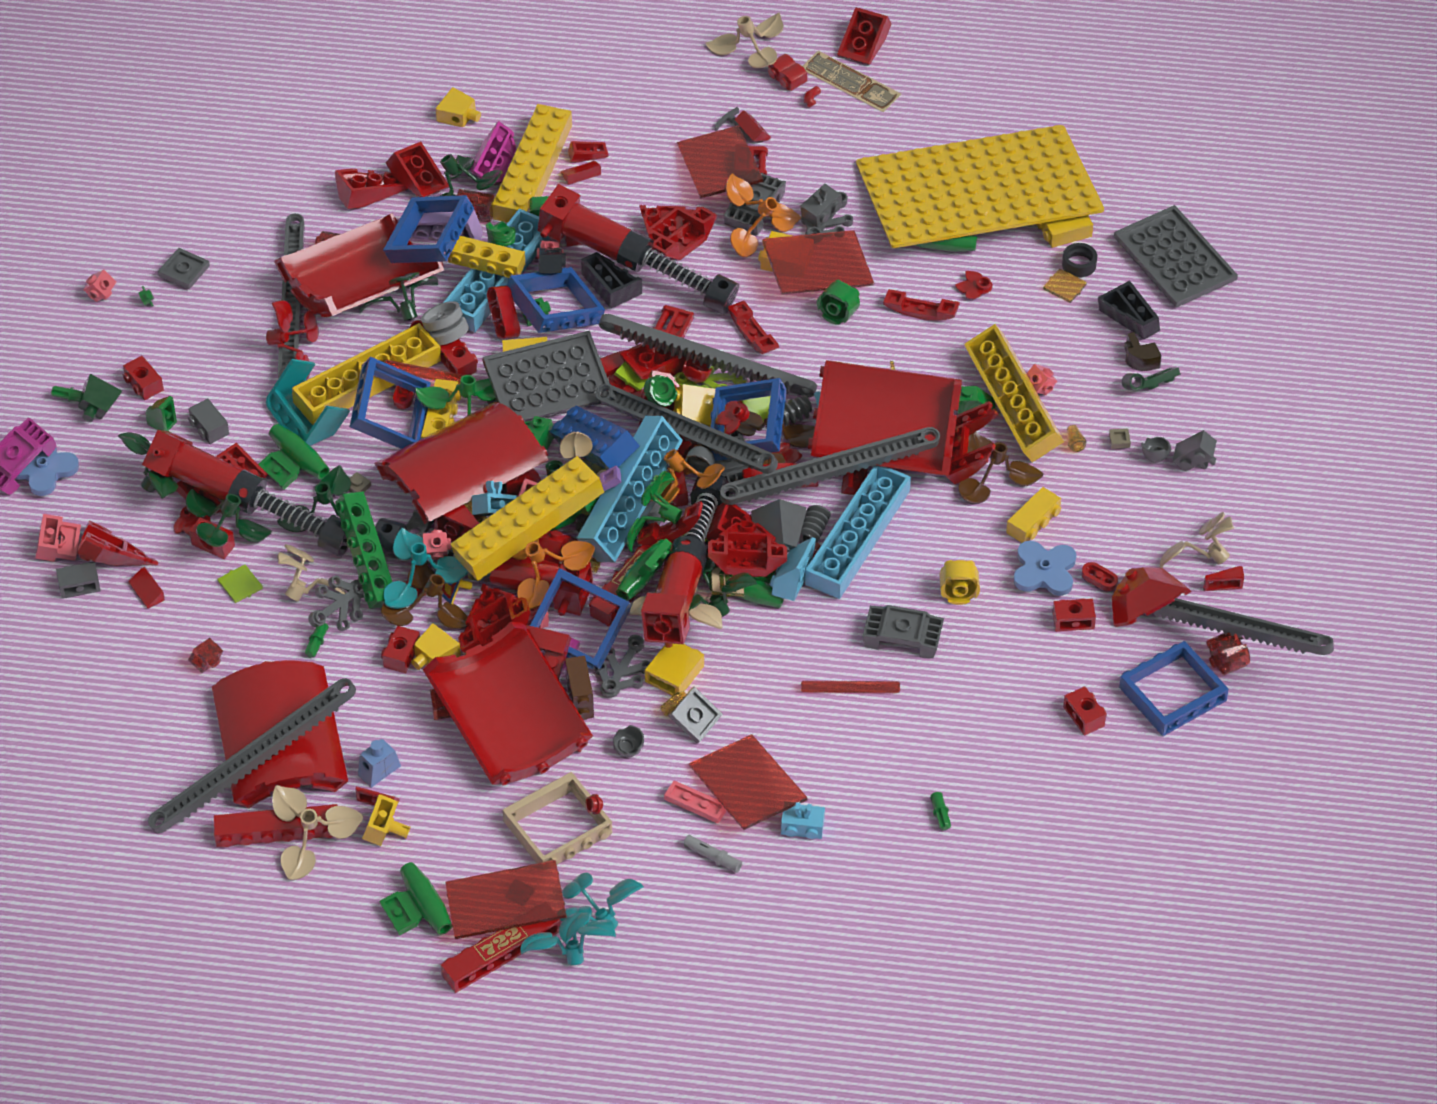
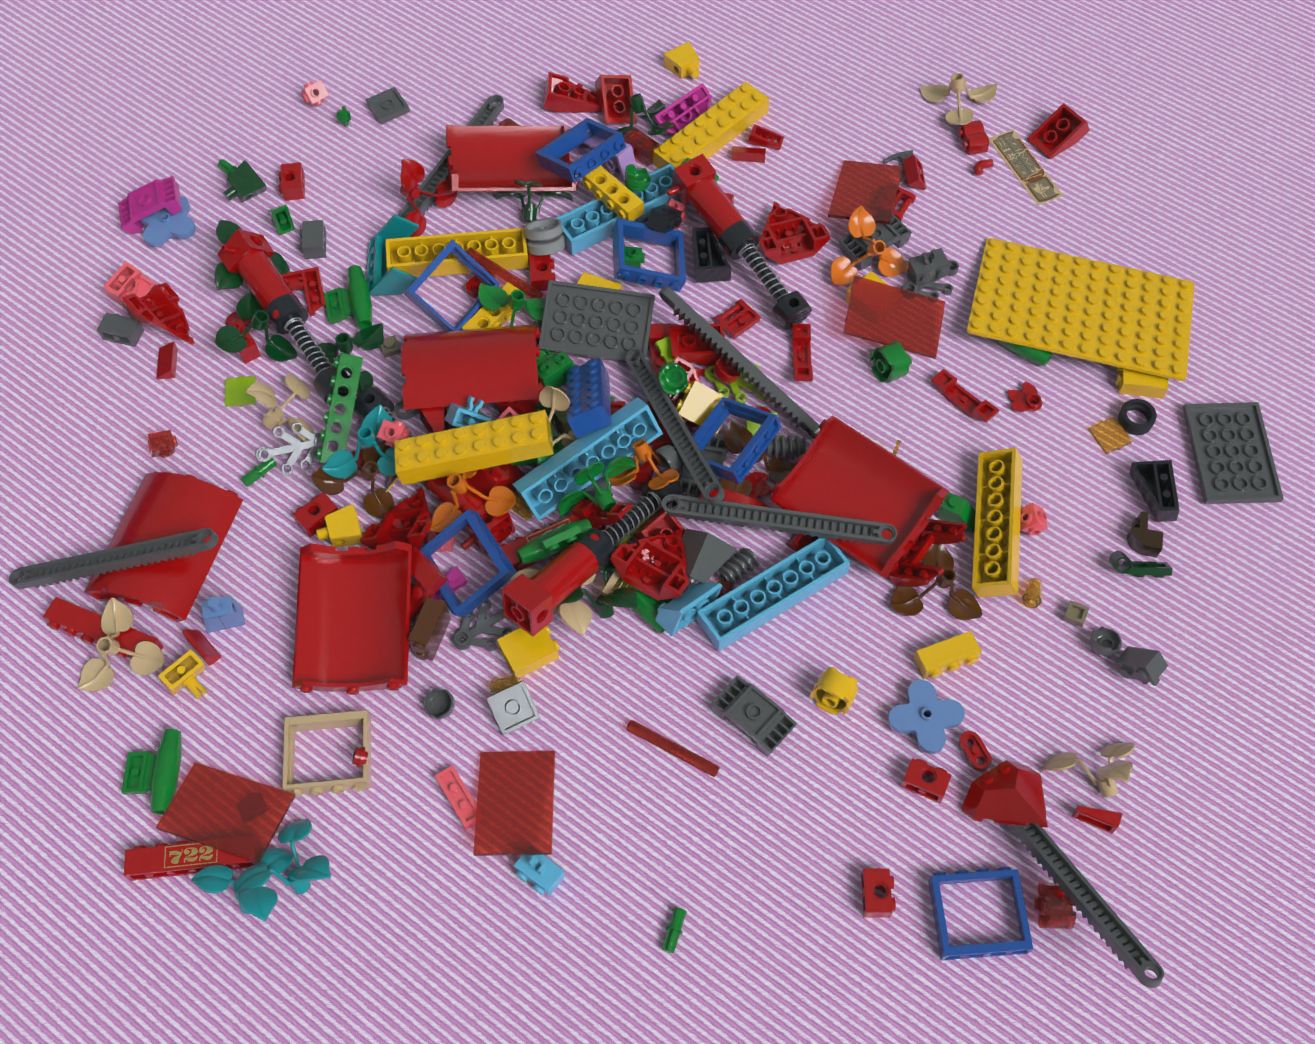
camera: 30 degrees right, 10 degrees up
(503, 312) = (600, 247): red beam -> none
(610, 478) = (566, 443): medium lavender plate -> none
(720, 857) = (443, 868): light grey pin -> none
(732, 416) = (716, 431): red plate -> none

